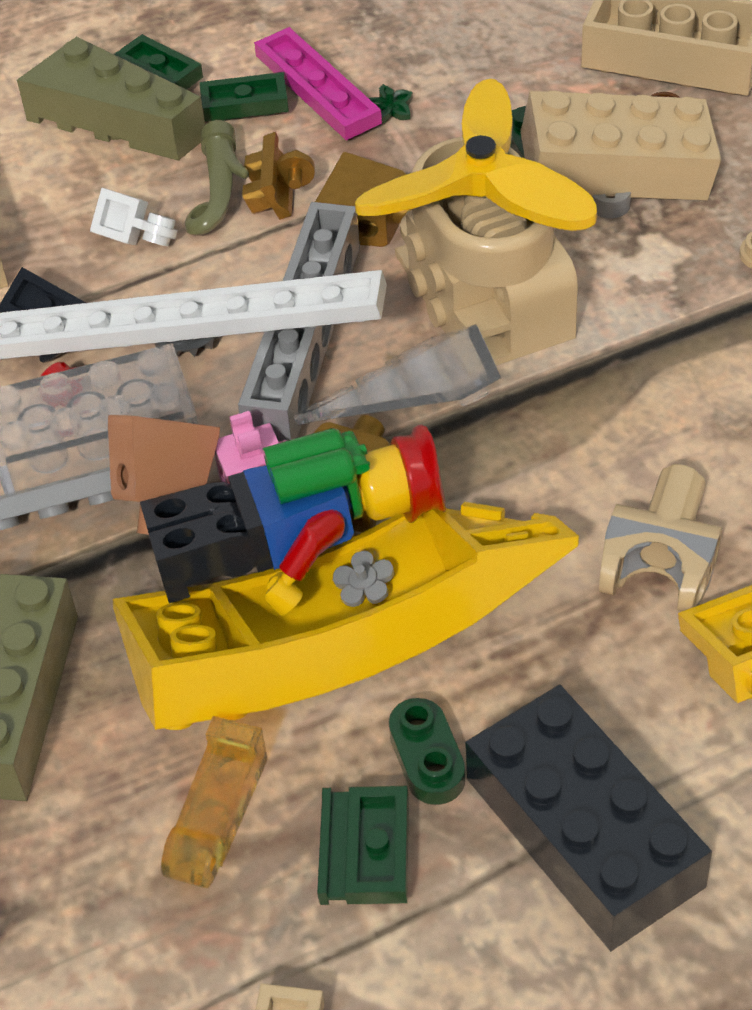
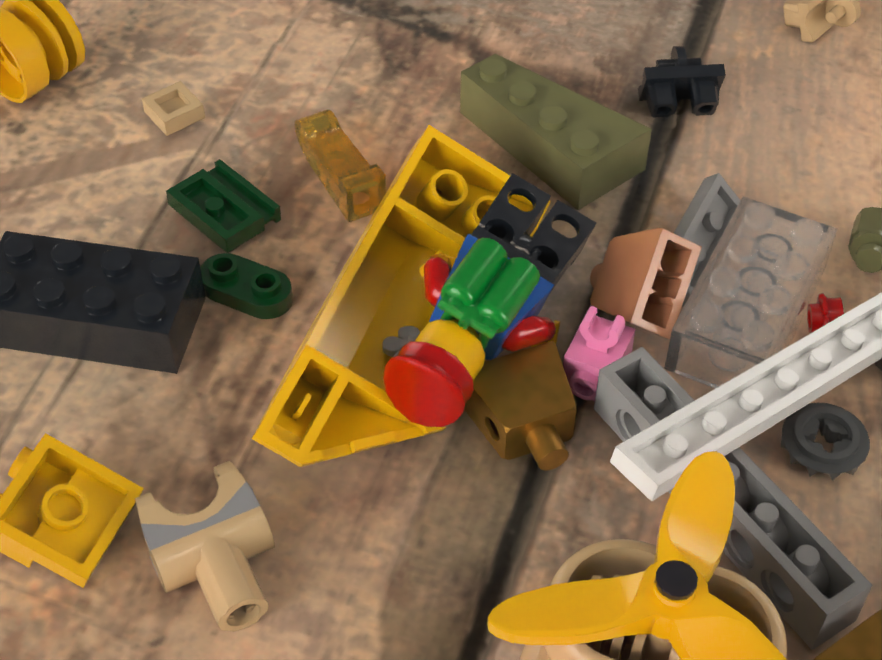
camera: 130 degrees right, 0 degrees up
(431, 373) = (564, 488): clear wedge -> none

